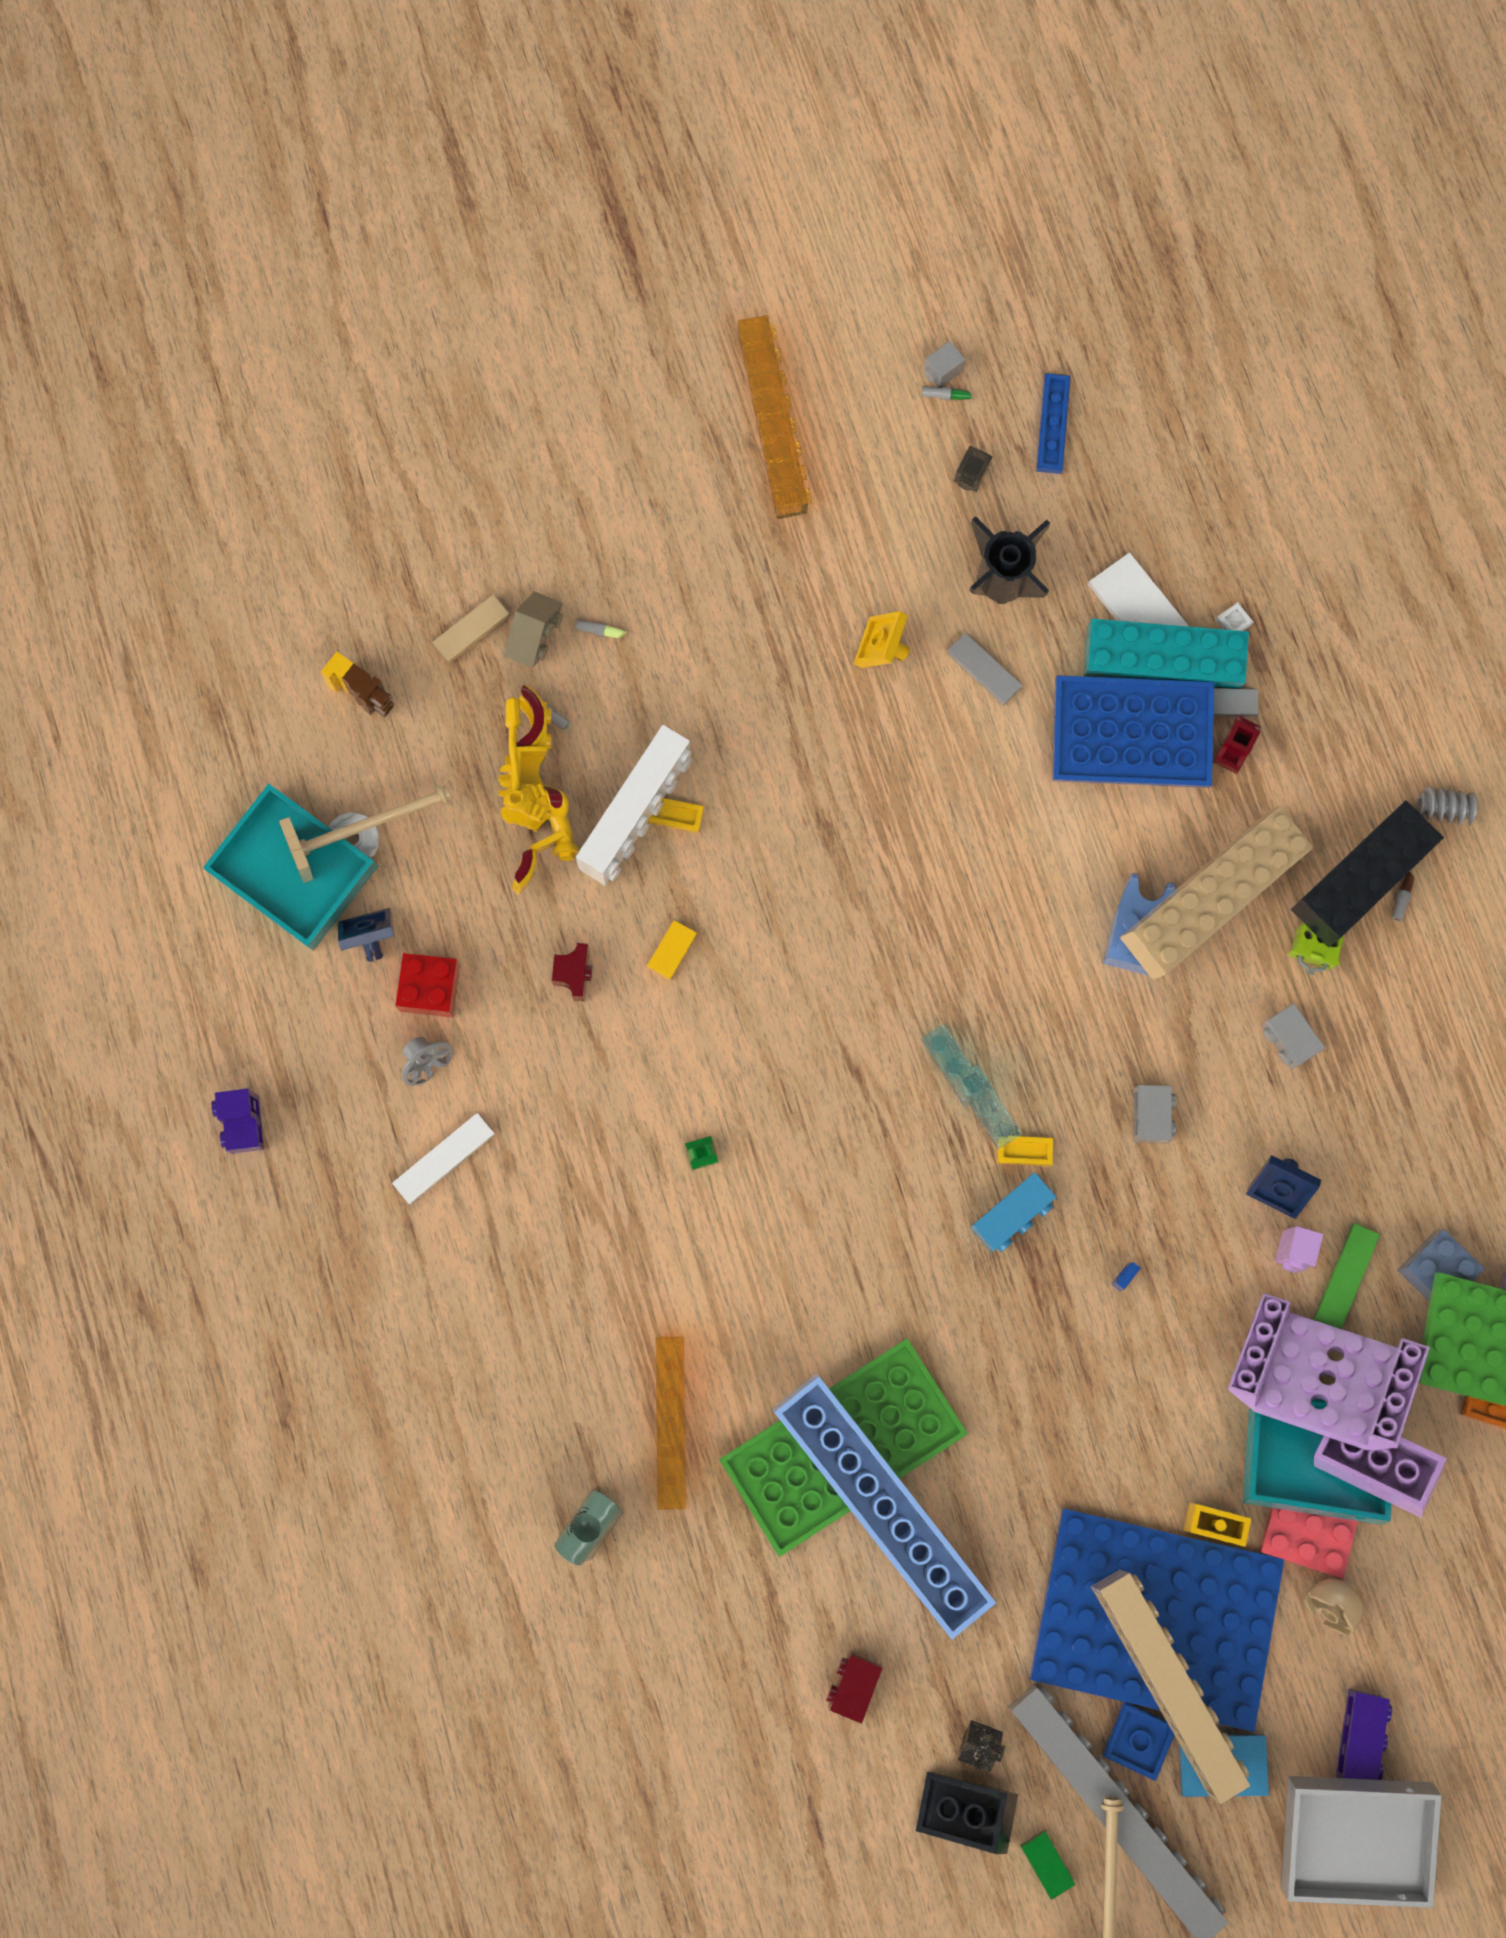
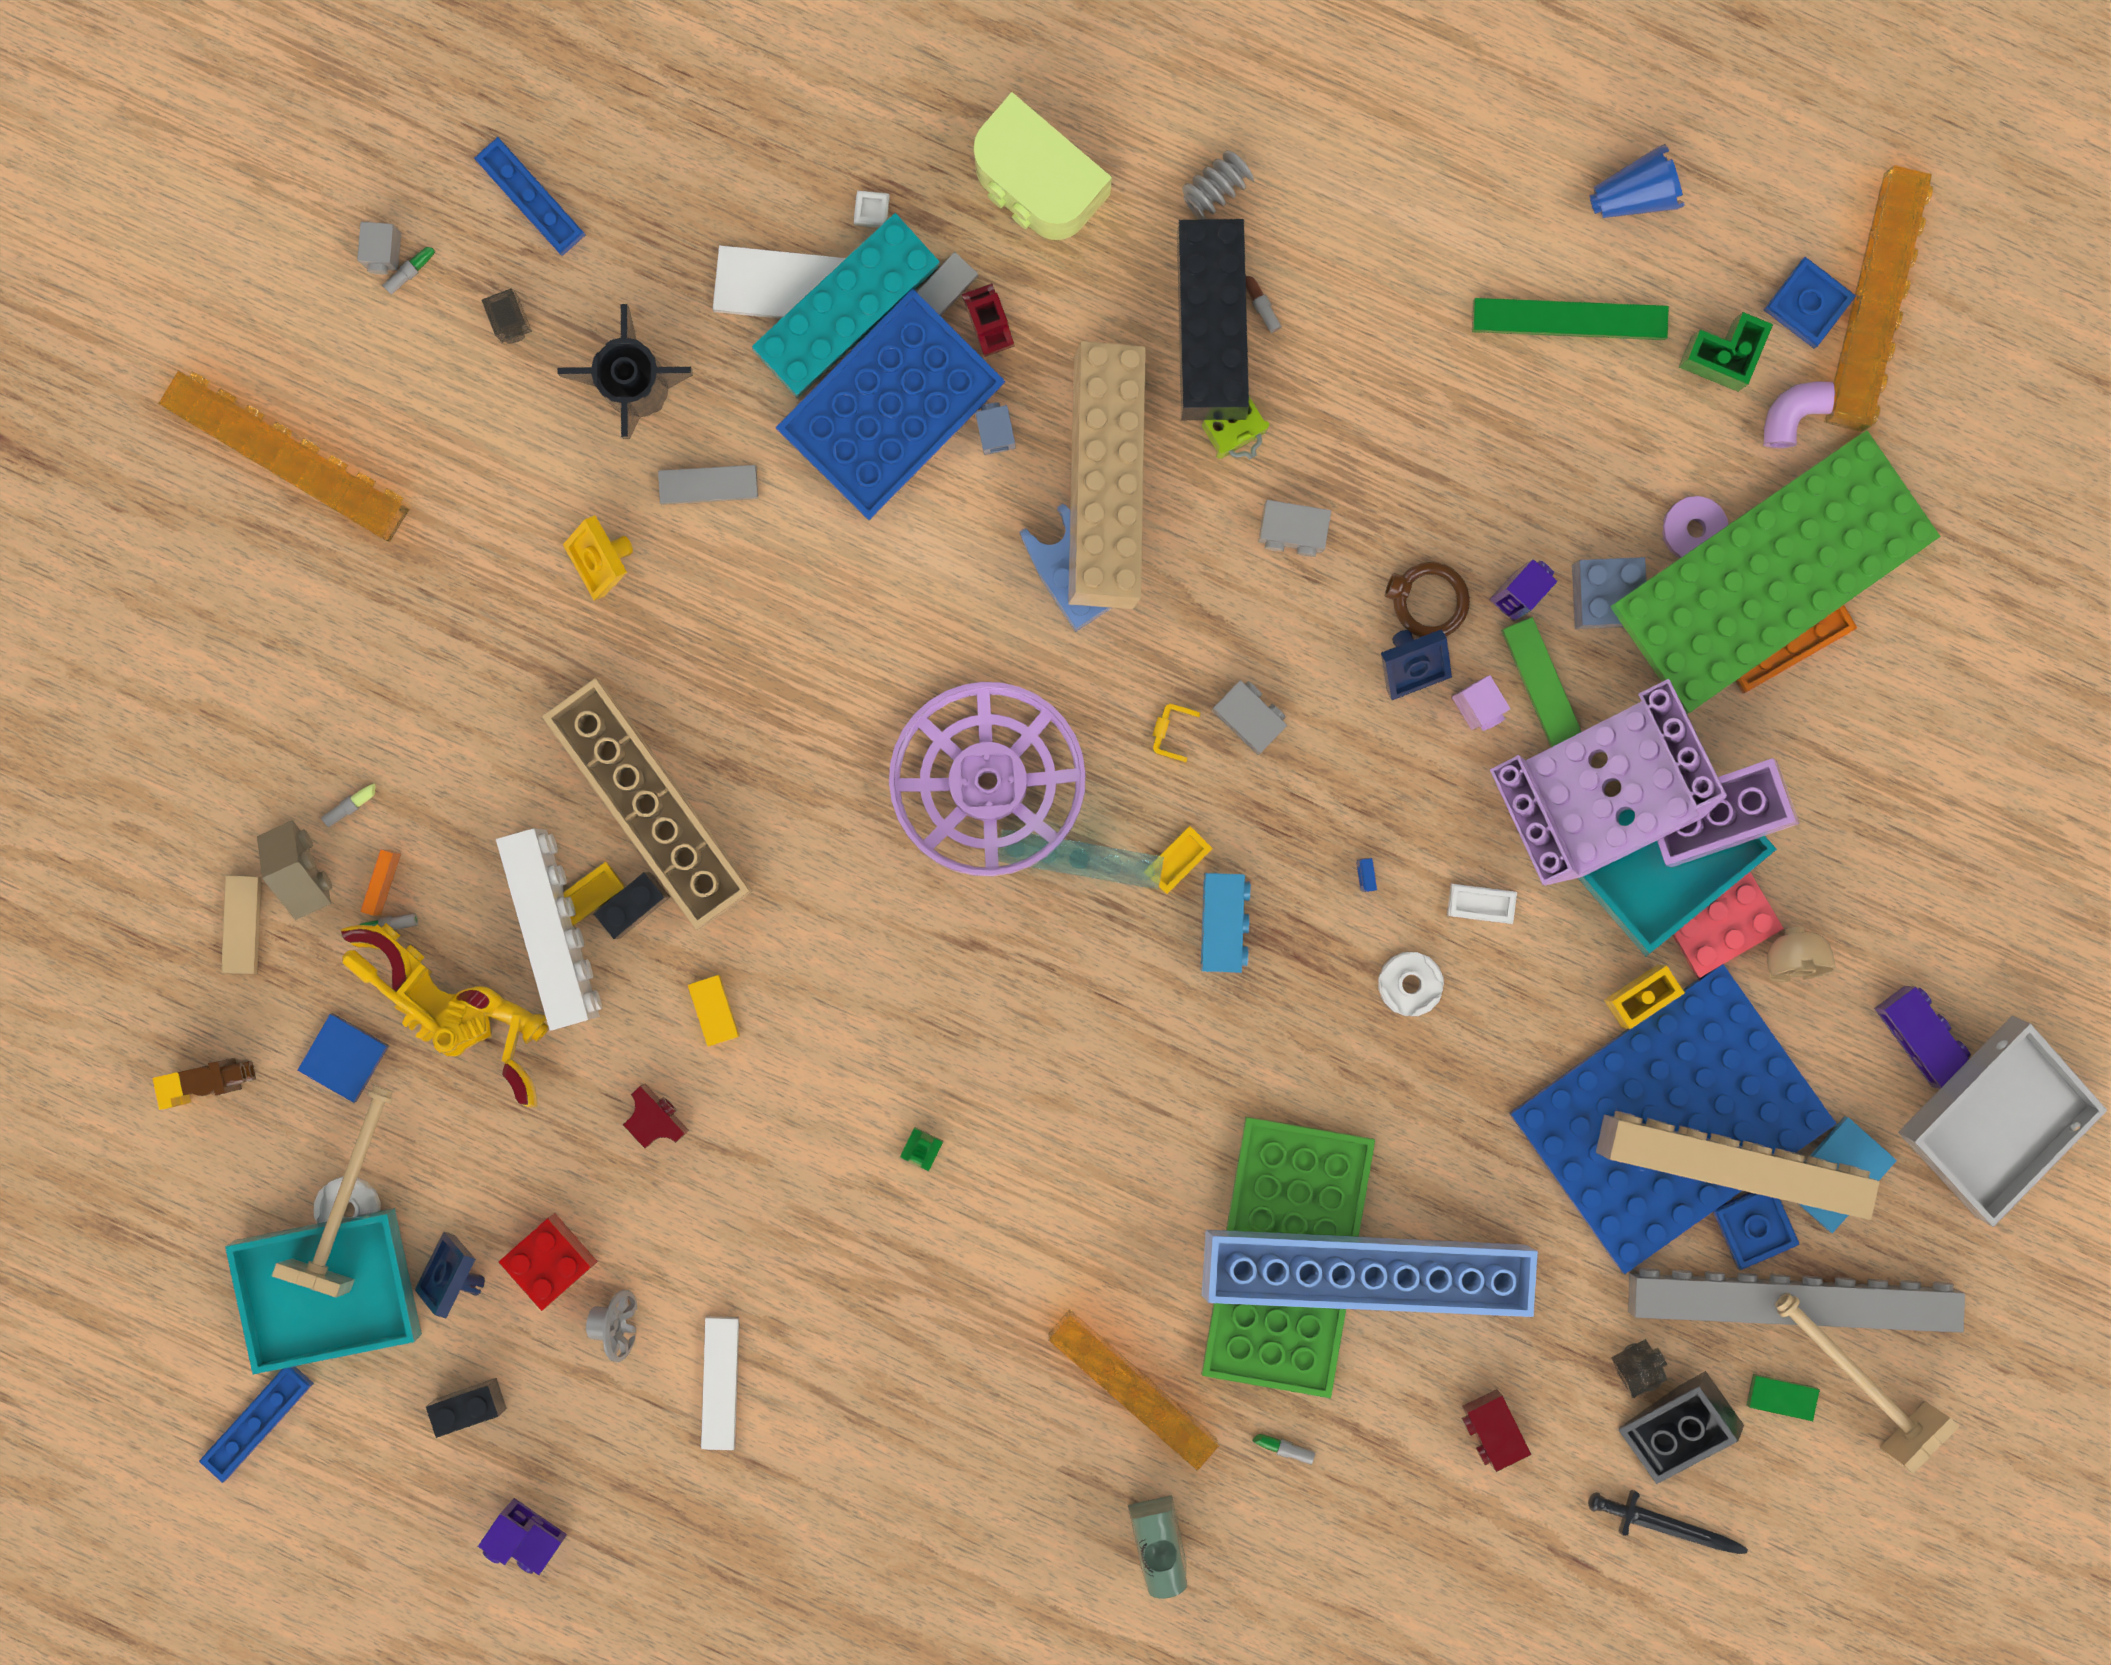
camera: 50 degrees left, 10 degrees up
(171, 899) = (256, 1422): none -> blue tile
(292, 1015) = (466, 1407): none -> black brick
(443, 756) = (343, 1058): none -> blue tile
(571, 686) = (380, 882): none -> orange tile
(692, 843) = (631, 905): none -> black brick
(719, 1558) = (1284, 1448): none -> light grey piece
(762, 799) = (647, 803): none -> tan brick
(893, 1860) = (1633, 1514): none -> black sword
(974, 974) = (982, 759): none -> lavender dish
(1095, 1067) = (1161, 728): none -> yellow piece
(1100, 1363) = (1391, 981): none -> white tile
(1175, 1367) = (1481, 903): none -> white tile
(1178, 805) = (995, 428): none -> sand blue brick
(1319, 1135) = (1400, 587): none -> reddish brown piece
(1352, 694) = (1037, 172): none -> yellowish green brick
(1393, 1208) = (1524, 589): none -> dark purple brick

